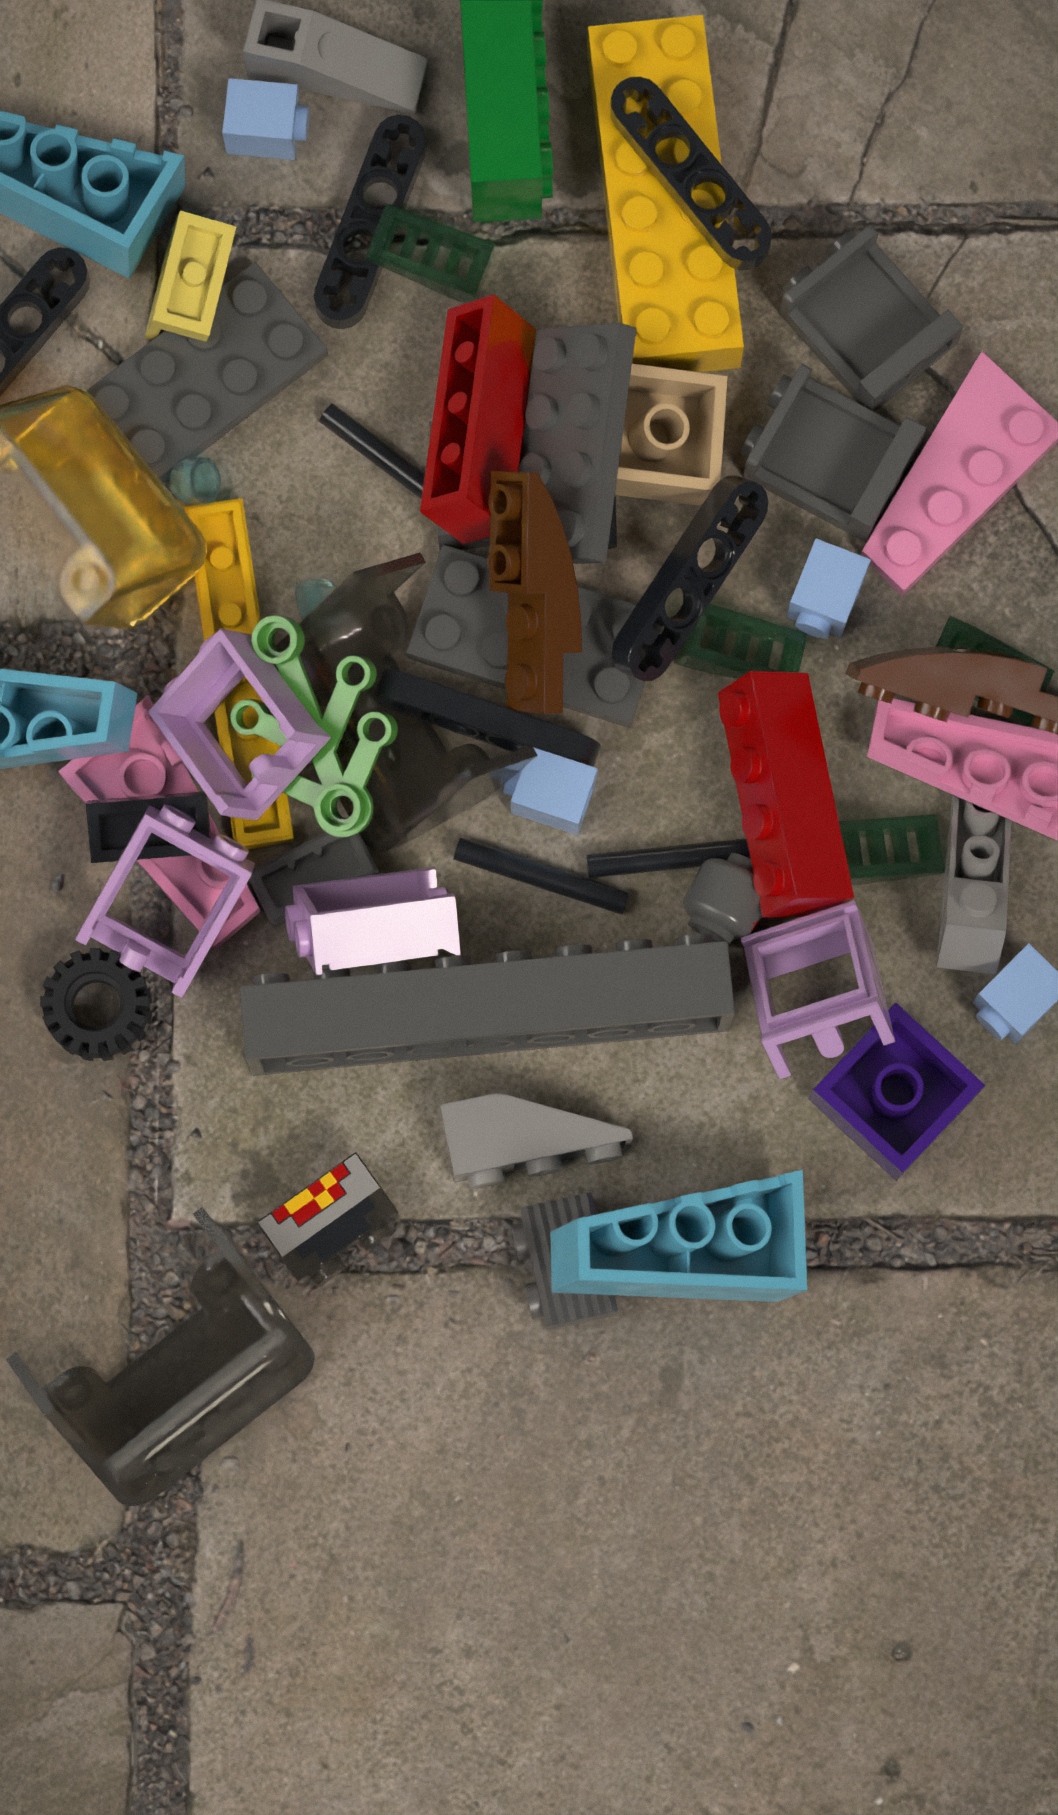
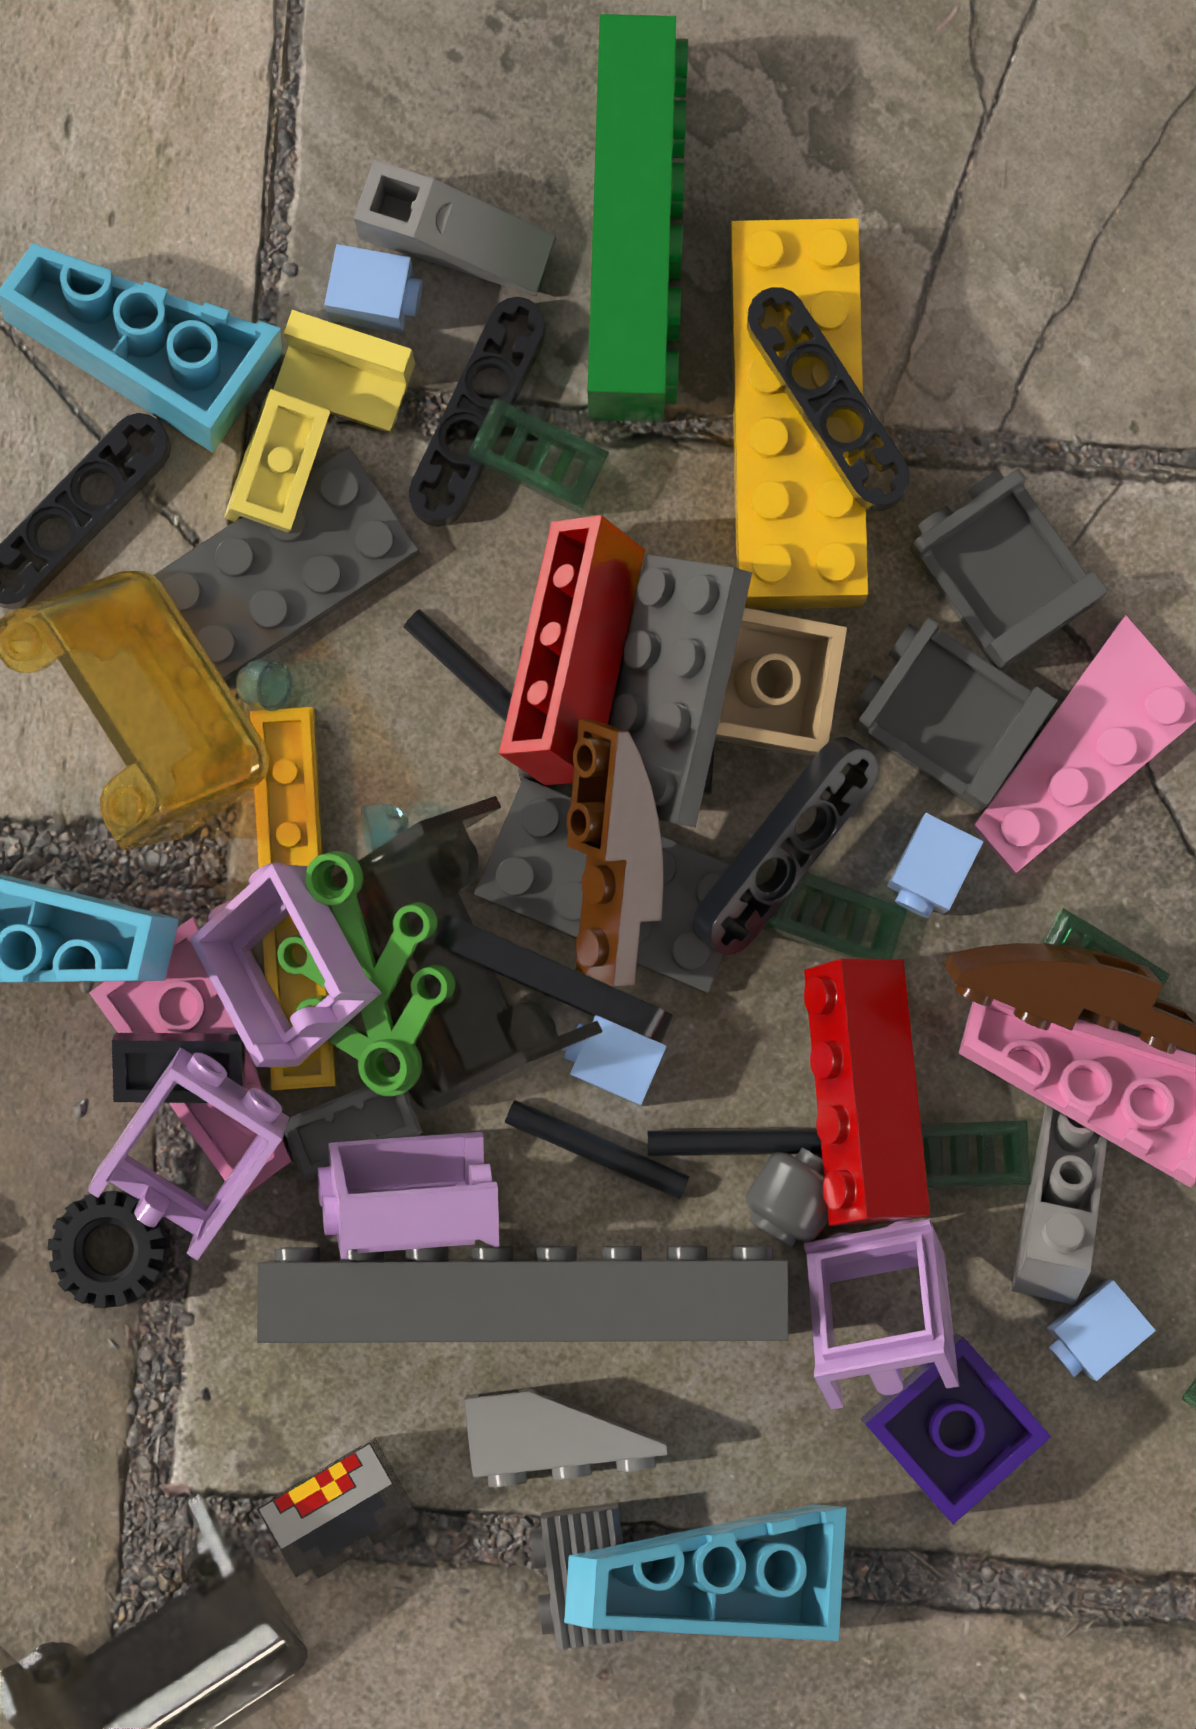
camera: 10 degrees right, 5 degrees up
(247, 191) = (345, 371): none -> light yellow panel

